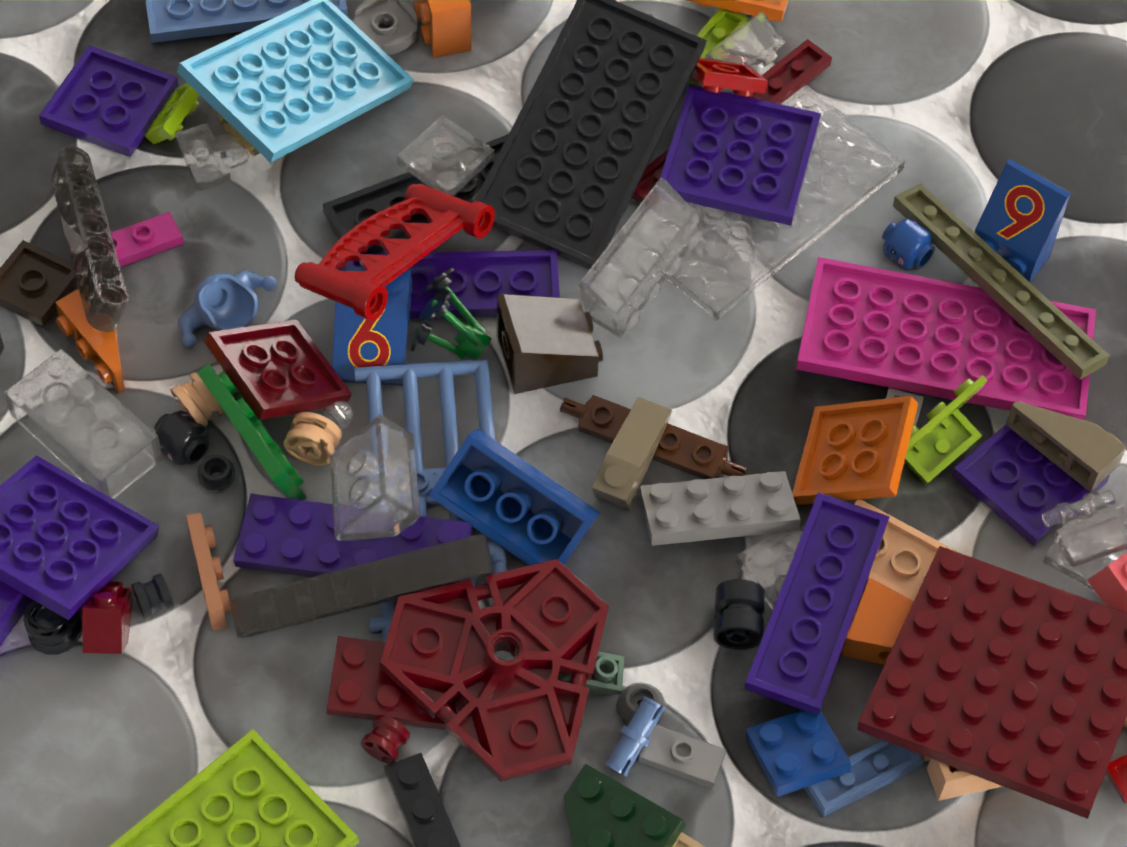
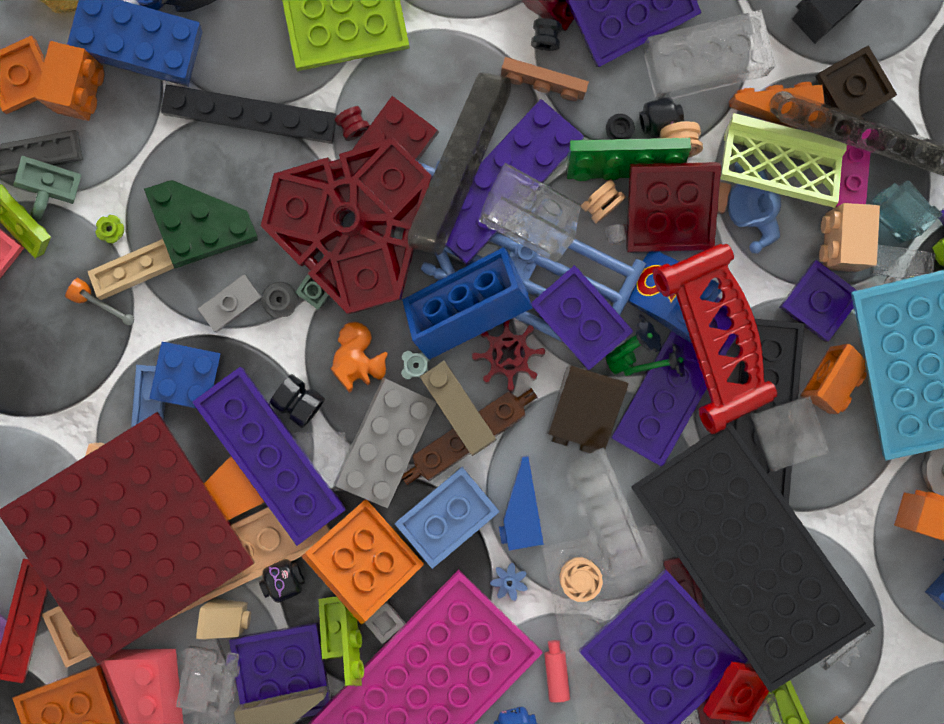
camera: 125 degrees right, 30 degrees up
(139, 315) = (785, 143): none -> yellowish green fence
(151, 170) = (905, 211): none -> clear light blue hips
(209, 201) = (850, 237): none -> light nougat brick
(288, 204) = (820, 301): none -> dark purple plate
(362, 154) = (836, 378): none -> orange slope
(455, 386) = (581, 317): none -> dark purple plate
(549, 432) = (498, 344): none -> dark red gear
(614, 519) = (411, 358): none -> light aqua plate
(635, 736) = (254, 277): medium blue pin -> none
(656, 589) = (350, 360): none -> orange animal
(691, 349) = (521, 515): none -> blue slope
(721, 257) = (580, 579): none -> light nougat wheel
(751, 412) = (447, 517): none -> medium blue plate
(772, 328) = (509, 576): none -> medium blue plant
(828, 238) = (556, 673): none -> coral cylinder
(937, 521) = (282, 580): none -> black head
(1021, 550) = (222, 619): none -> tan slope

